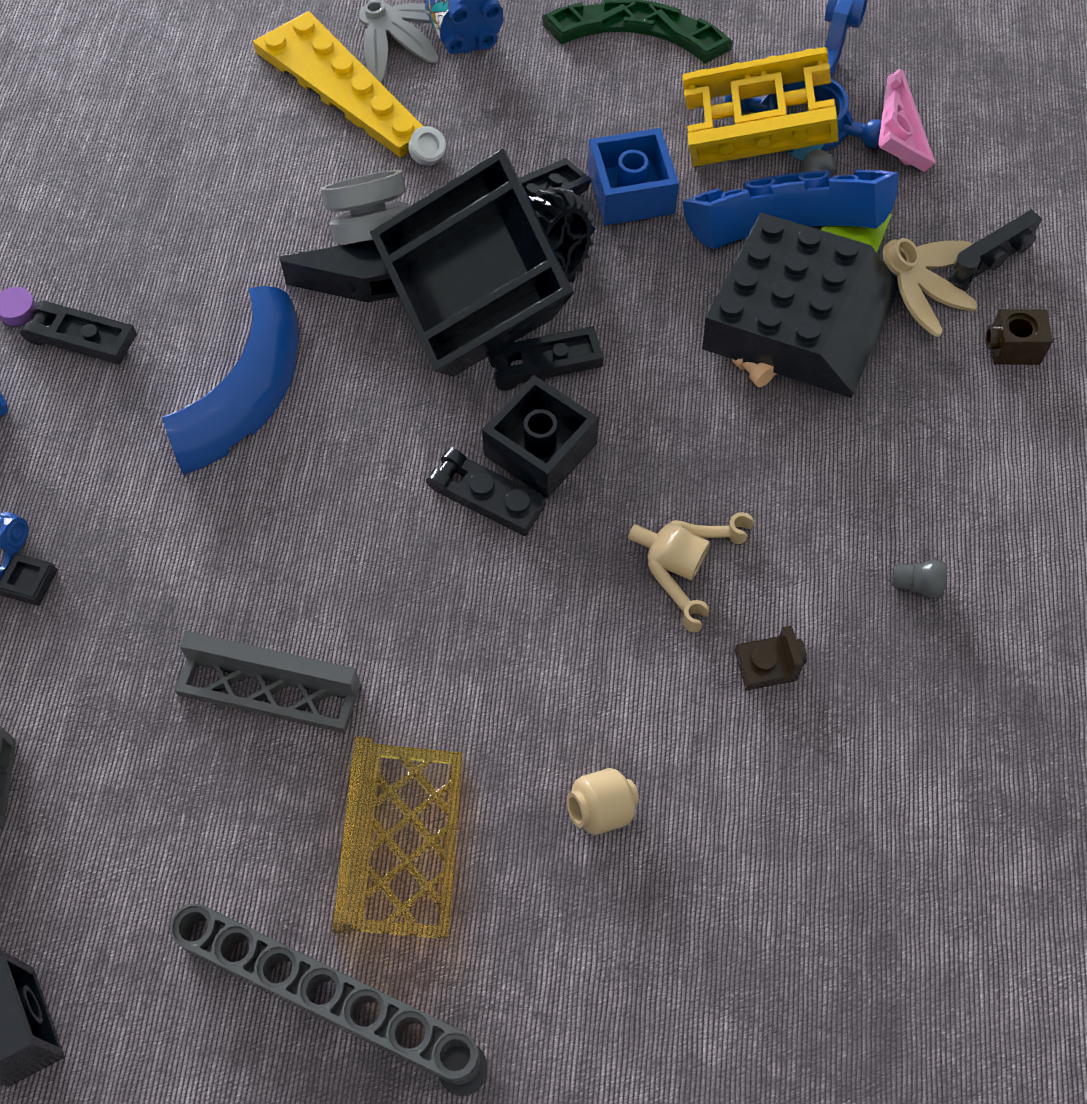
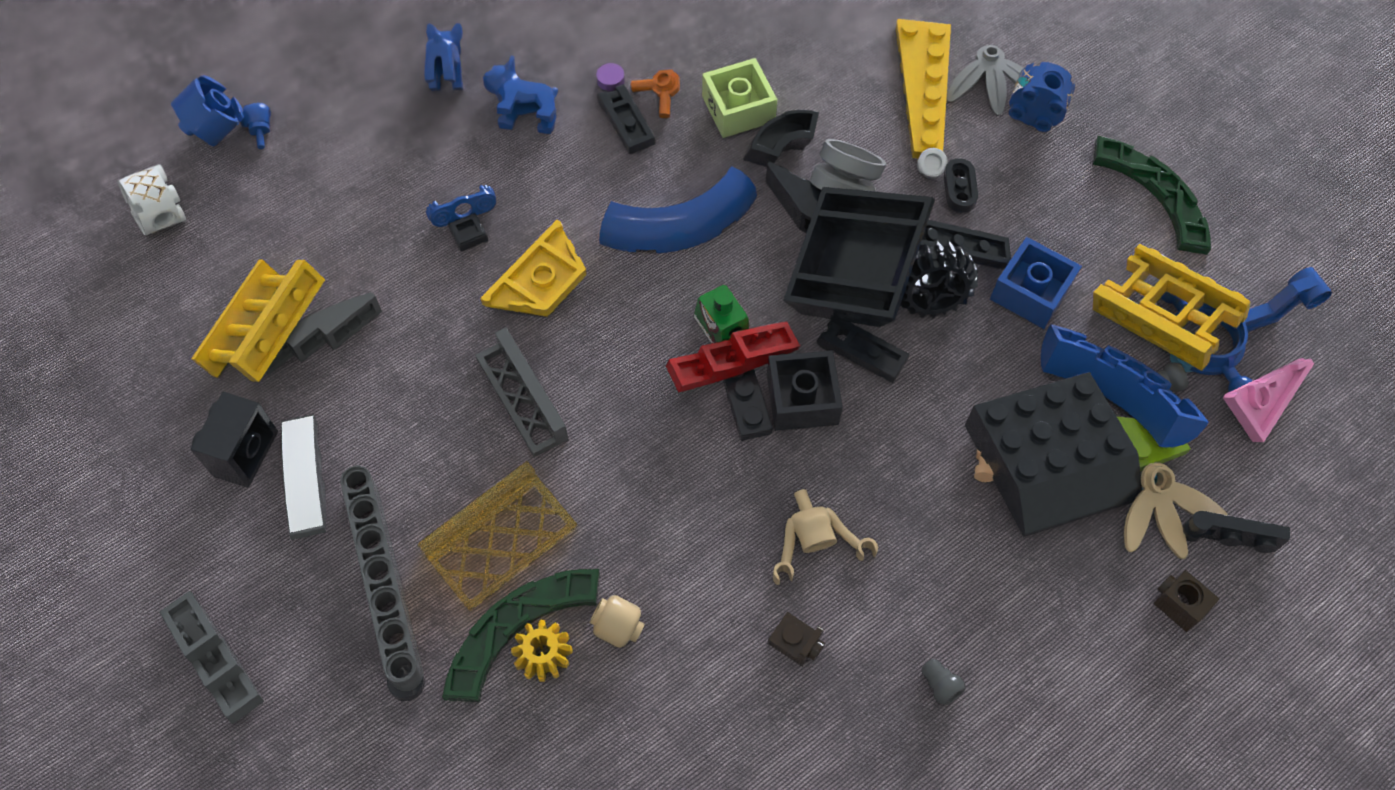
camera: 45 degrees right, 0 degrees up
(84, 269) = (664, 85): none -> orange piece
(123, 982) = (303, 477): none -> white slope
(158, 556) = (539, 276): none -> yellow wing
(180, 222) = (739, 97): none -> yellowish green brick
(261, 226) = (785, 132): none -> black brick
(396, 438) = (720, 314): none -> green torso
(442, 463) = (732, 357): none -> red slope
(476, 143) = (960, 188): none -> black plate
(493, 908) = (506, 619): none -> dark green tile
(554, 912) = (536, 638): none -> yellow gear

